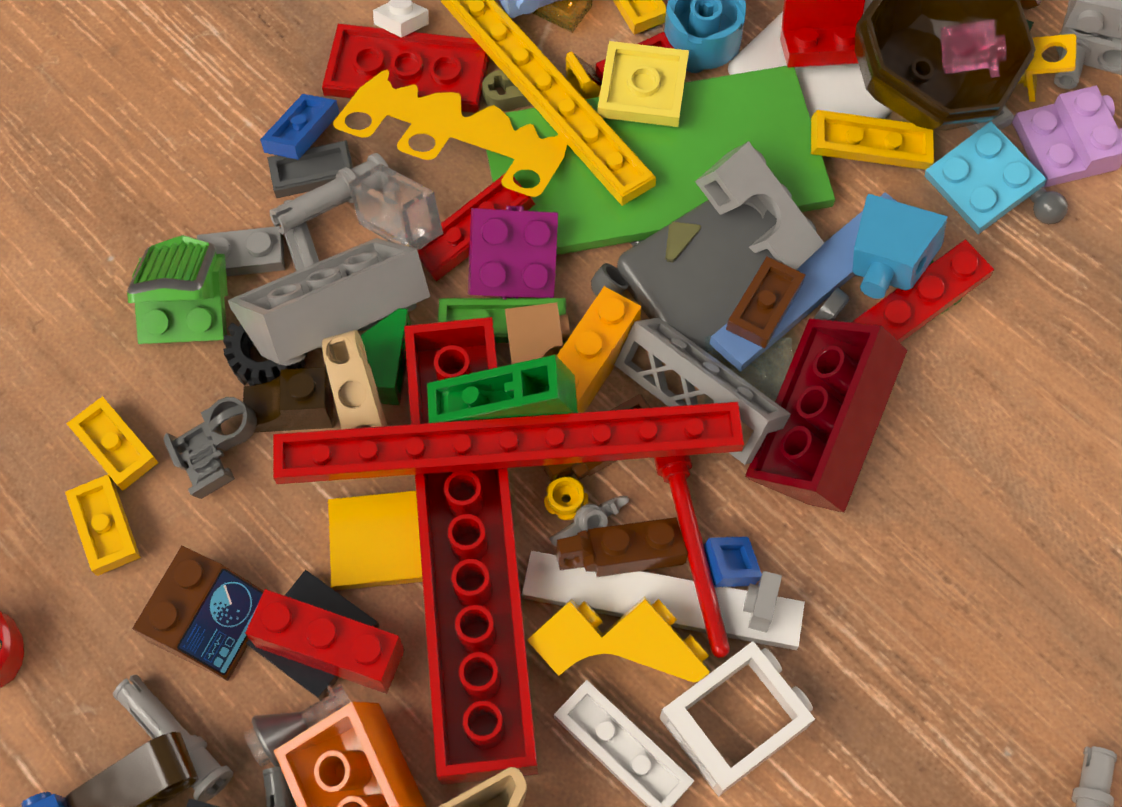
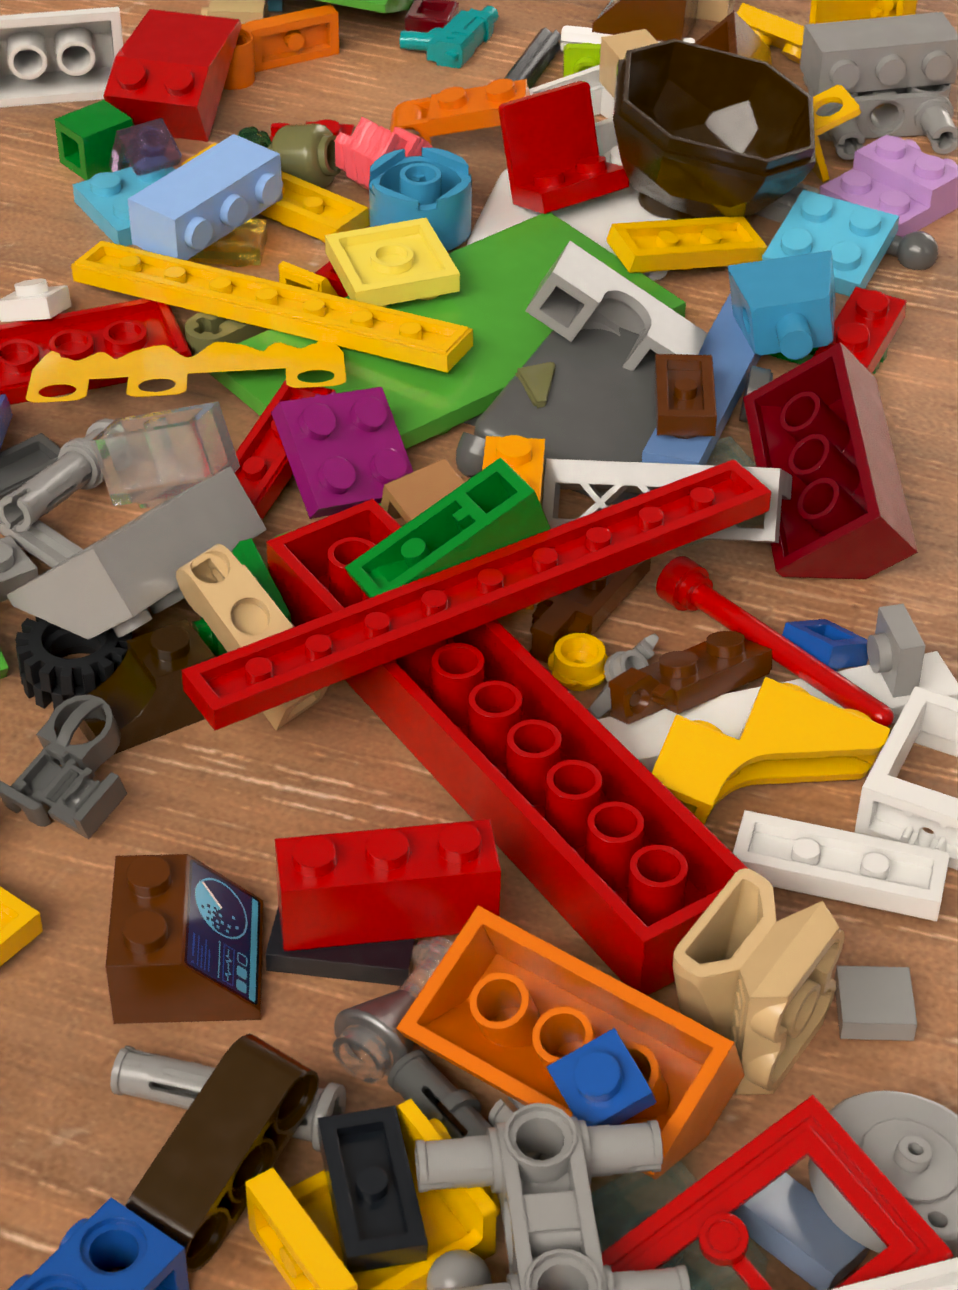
camera: 30 degrees left, 25 degrees down
(374, 540) = (364, 785): yellow tile -> none
(972, 47) = (754, 95): clear pink bracket -> none

